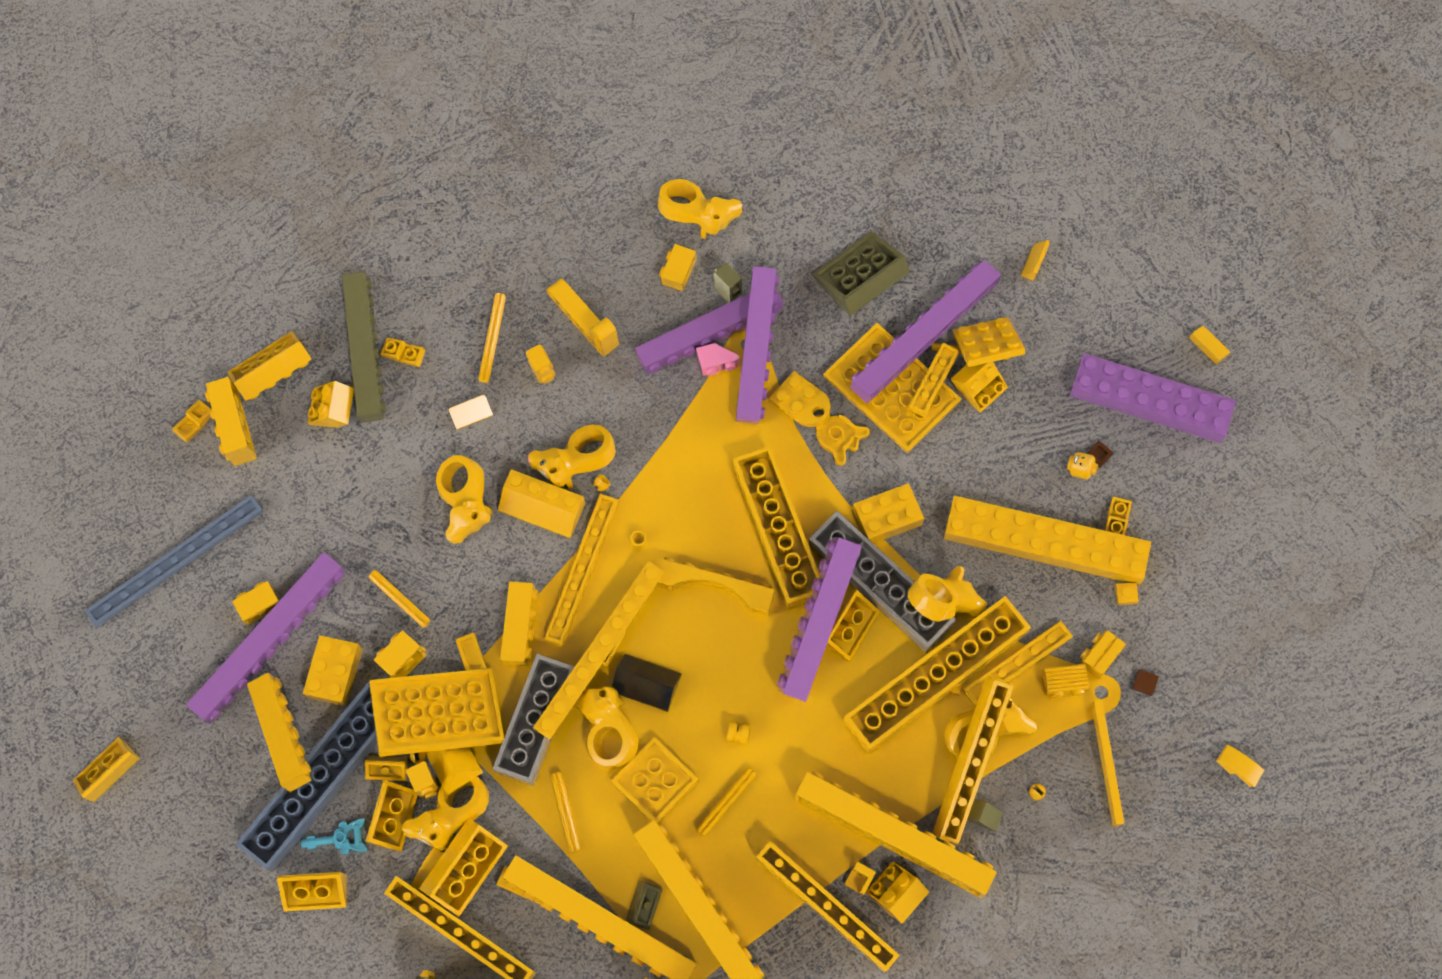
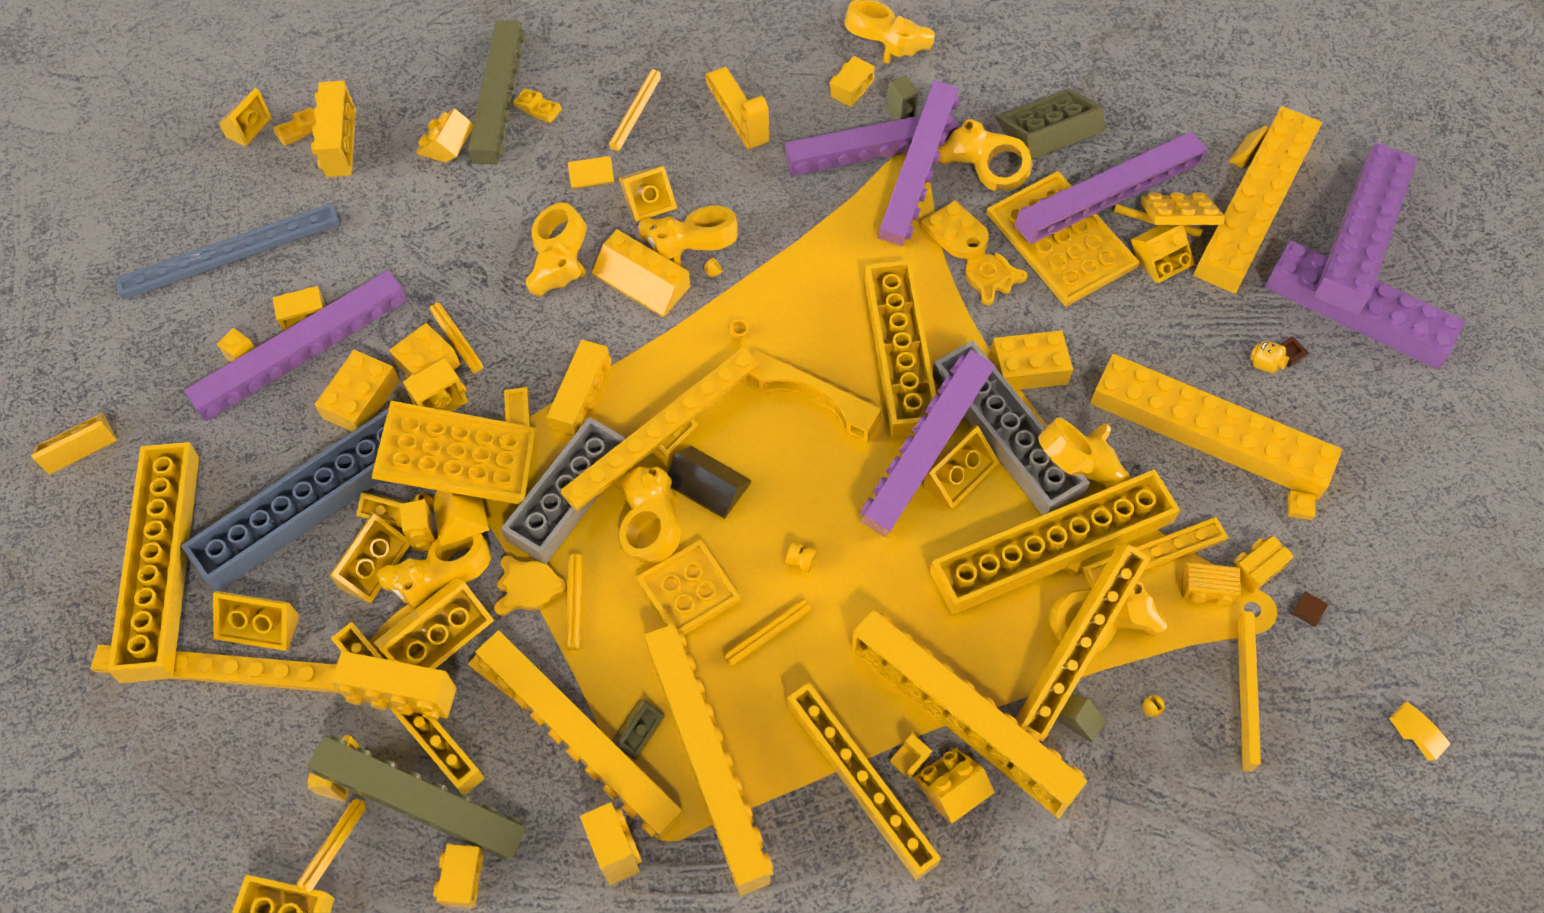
camera: 10 degrees right, 10 degrees down
(144, 427) = (246, 119): none -> yellow slope
(215, 653) = (235, 345): none -> yellow brick
(217, 860) = (154, 564): none -> yellow brick
(269, 366) = (393, 91): yellow slope -> none
(279, 732) = (274, 439): yellow brick -> none
(298, 934) = (241, 670): none -> yellow plate
(340, 838) = (306, 573): medium azure piece -> none
(378, 624) = (421, 350): none -> yellow brick
(450, 923) = (394, 685): none -> yellow brick
(524, 806) = (527, 585): none -> yellow tile
(526, 422) = (648, 193): none -> yellow slope
(540, 364) = (679, 137): yellow brick -> none
(581, 570) = (665, 351): yellow tile -> none
(715, 358) = (871, 172): bright pink slope -> none
(803, 315) = (977, 146): none -> yellow animal
(933, 379) = (1111, 236): yellow tile -> none
(1051, 313) = (1257, 200): none -> yellow brick
(1118, 515) = (1305, 416): yellow slope -> none
(1144, 329) = (1366, 229): none -> medium lavender brick
(1209, 344) = (1436, 266): yellow slope -> none

